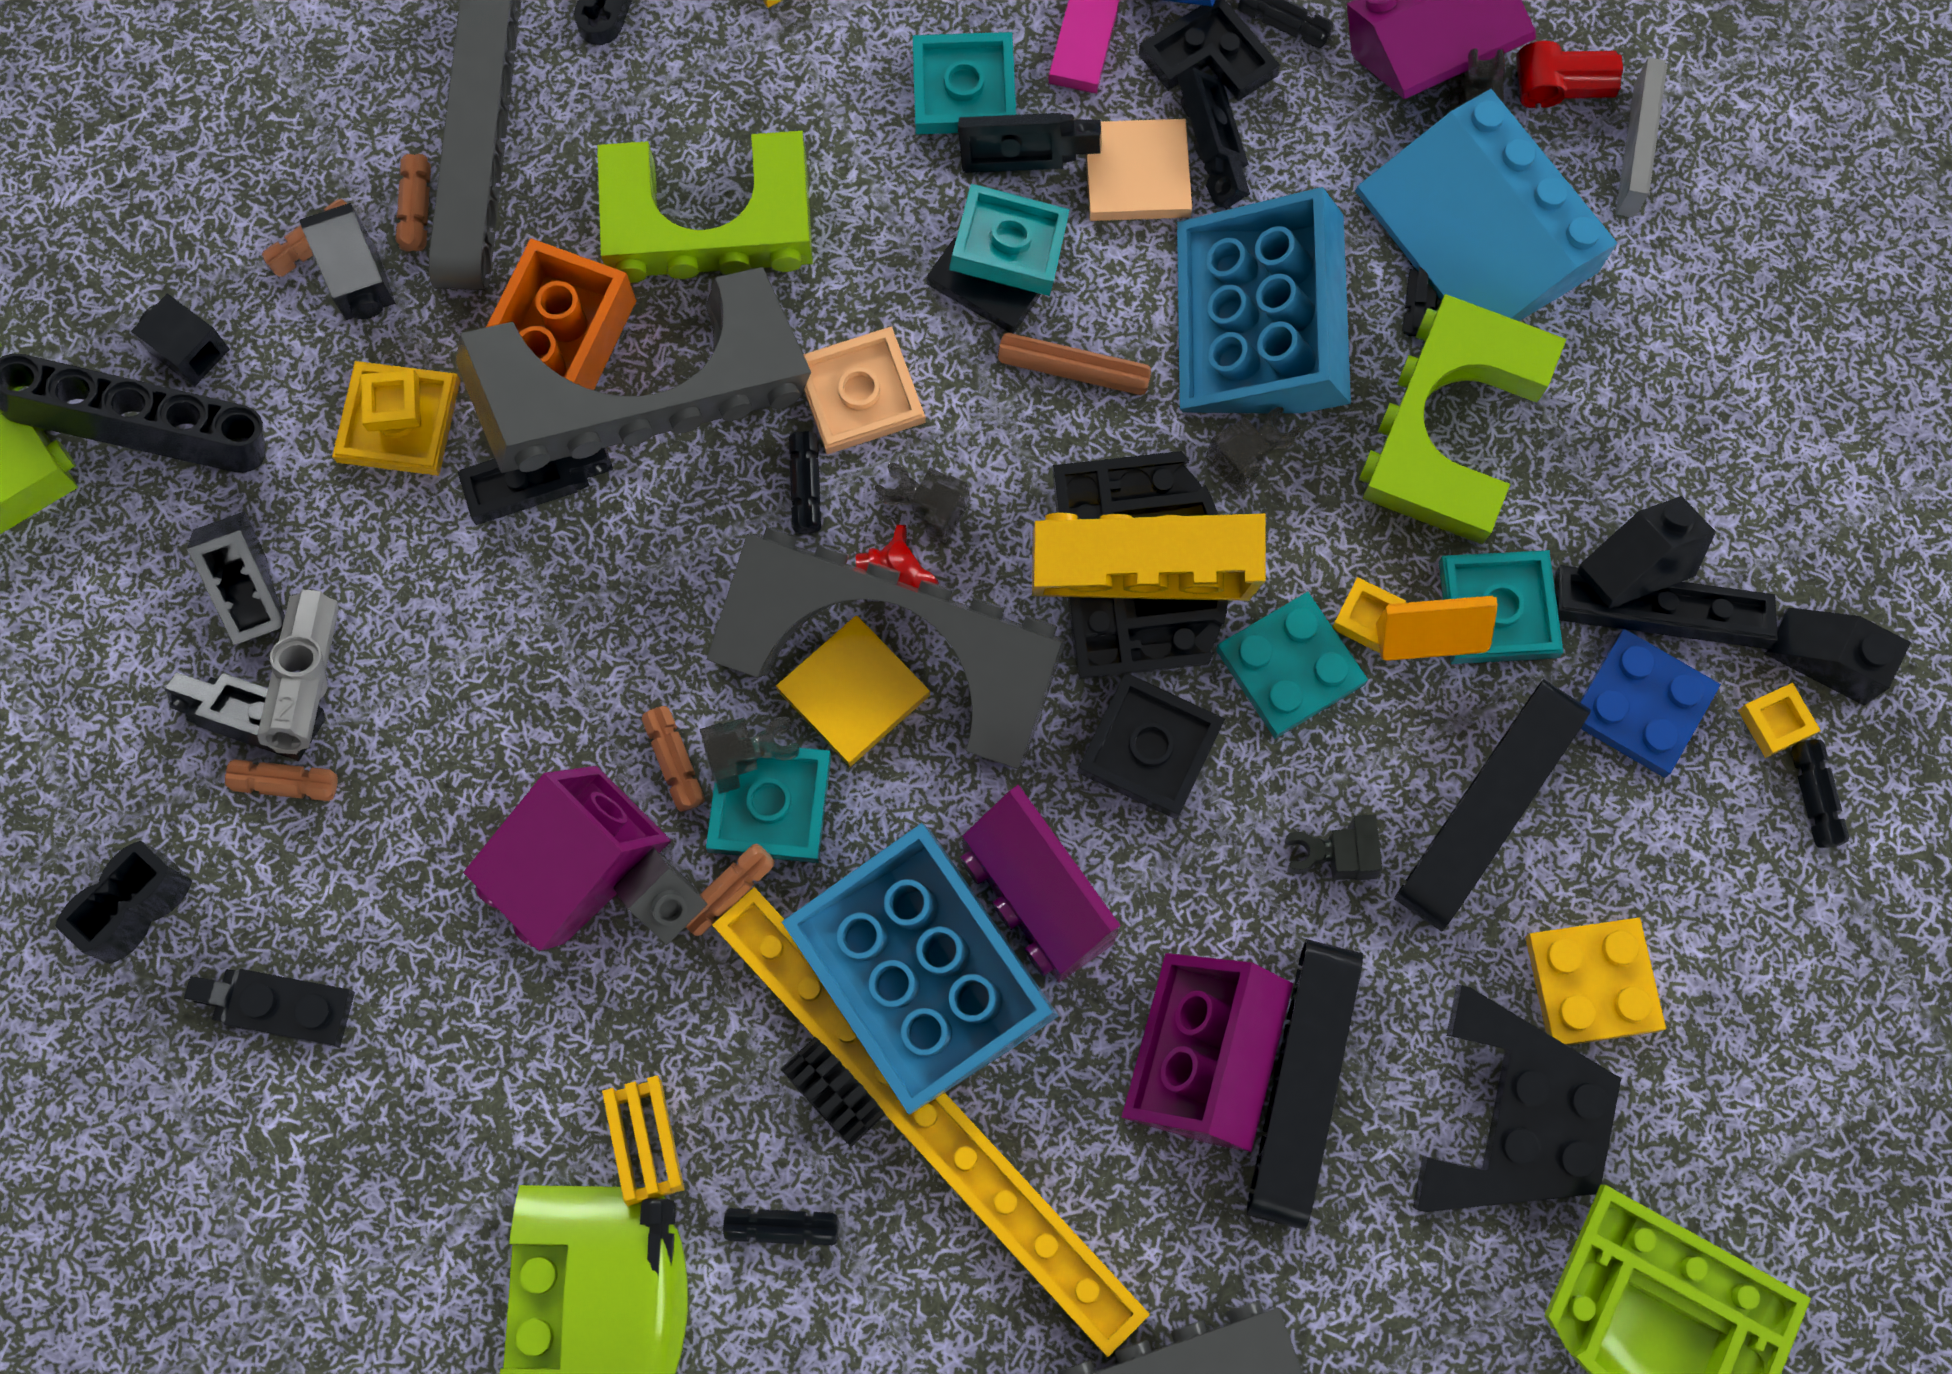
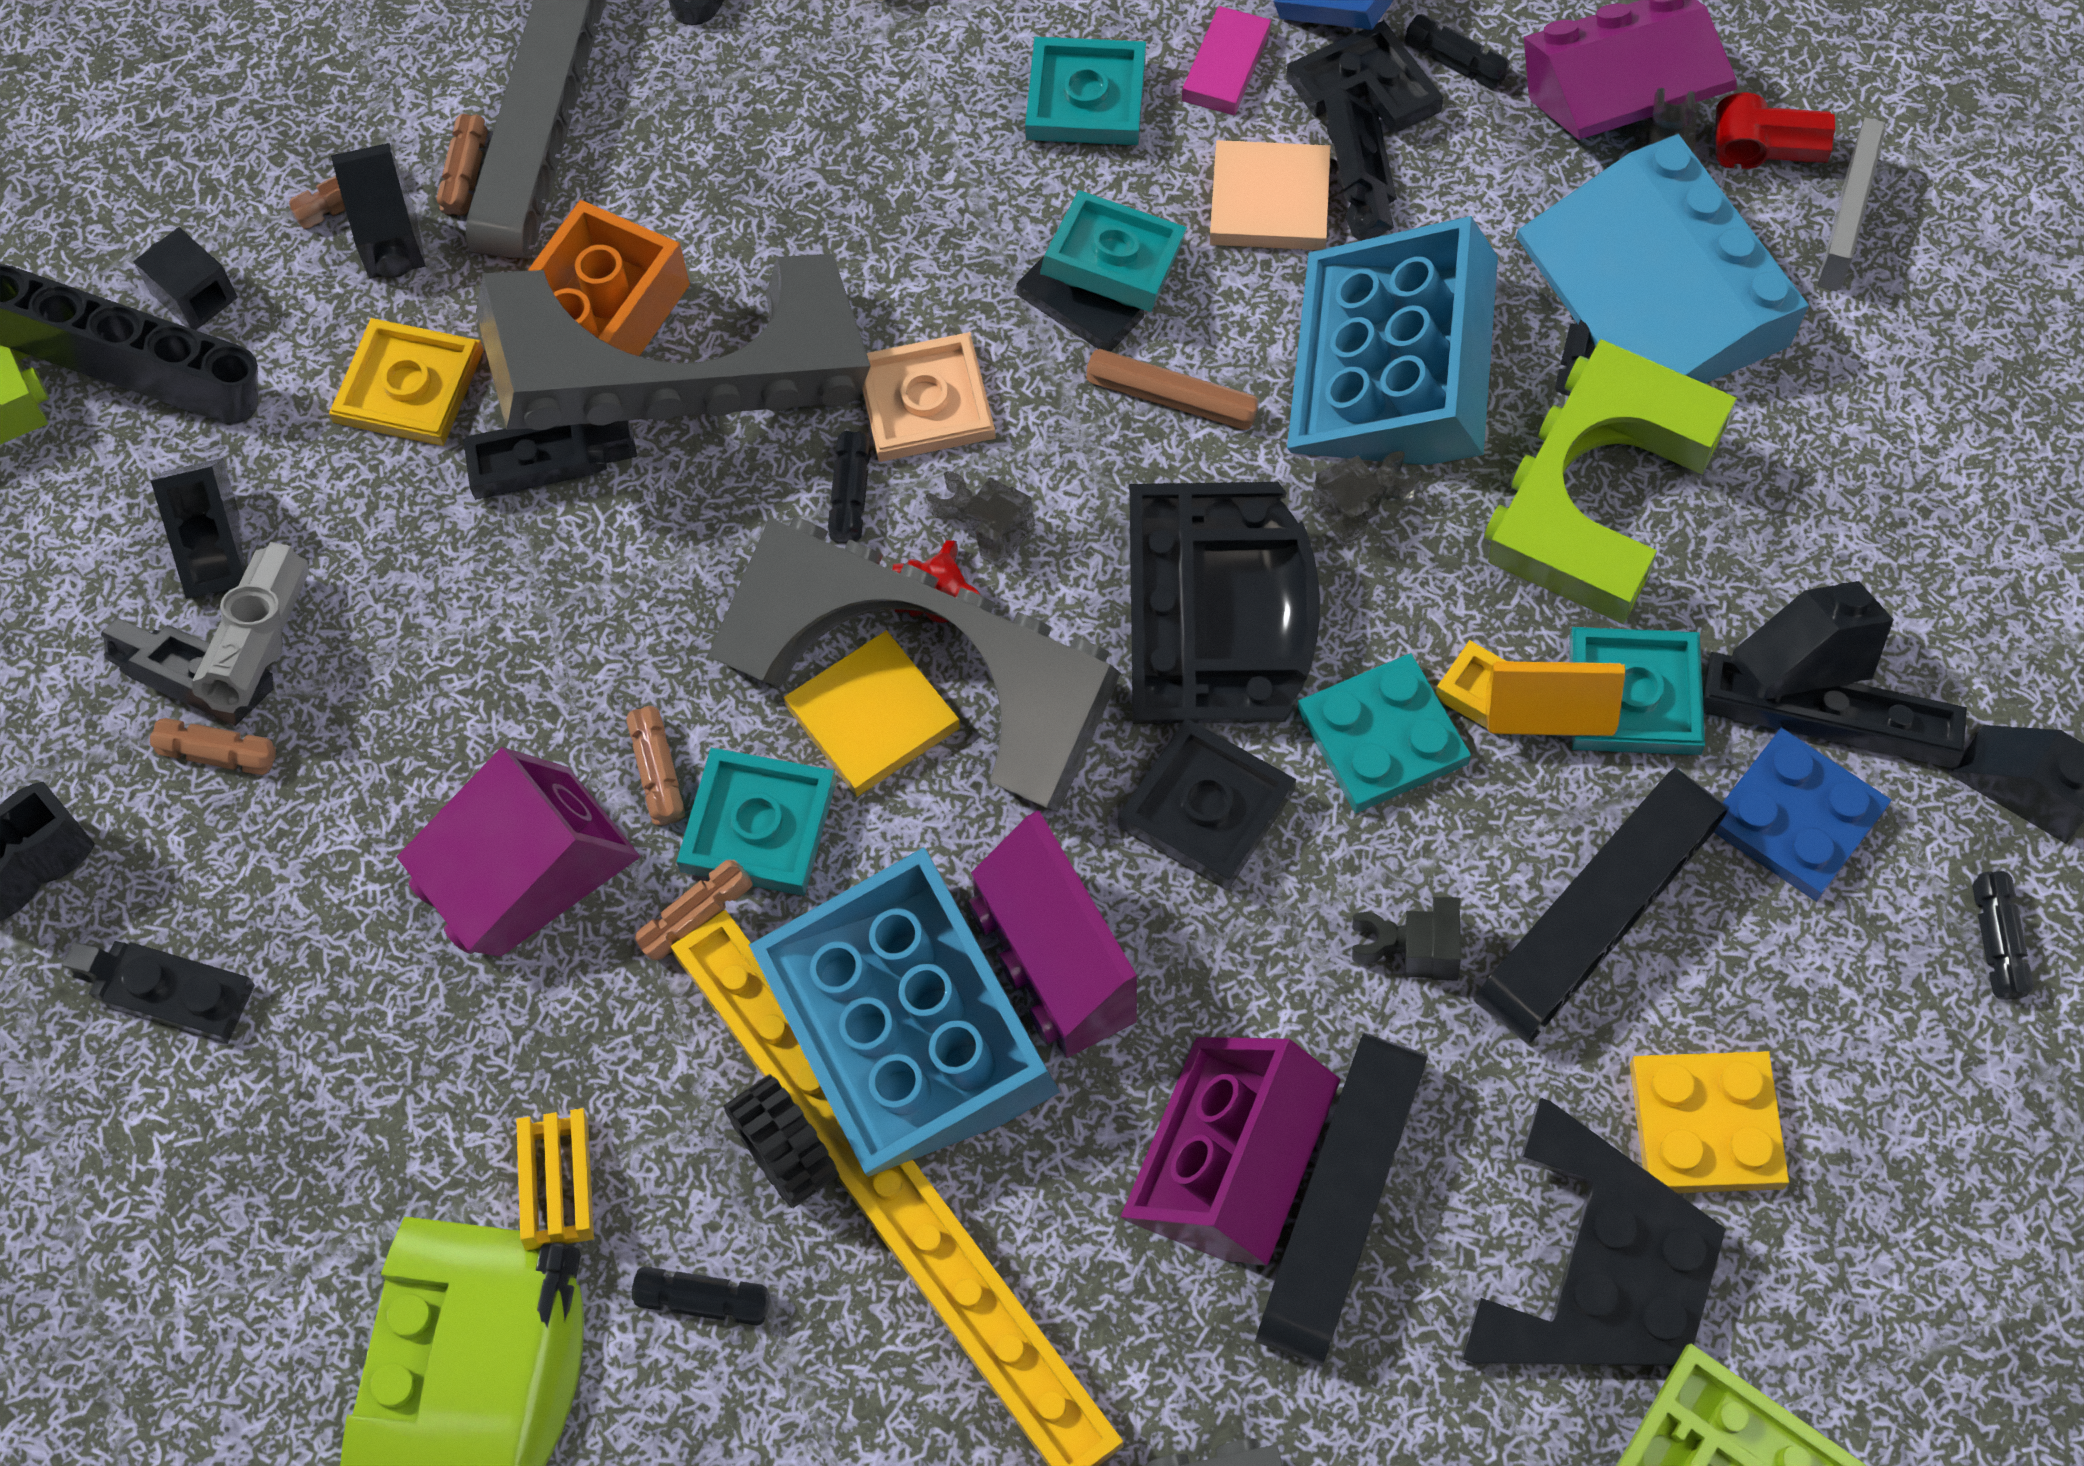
camera: 10 degrees right, 10 degrees down
(390, 400) = (401, 356): yellow plate -> none
(660, 896) = (615, 905): dark grey brick -> none
(735, 752) = (723, 758): clear smoke piece -> none
(767, 233) = (847, 219): lime arch -> none
(1025, 141) = (1145, 152): black hinge -> none
(1149, 556) = (1225, 586): yellow wedge -> none
(1779, 720) = (1958, 846): yellow plate -> none

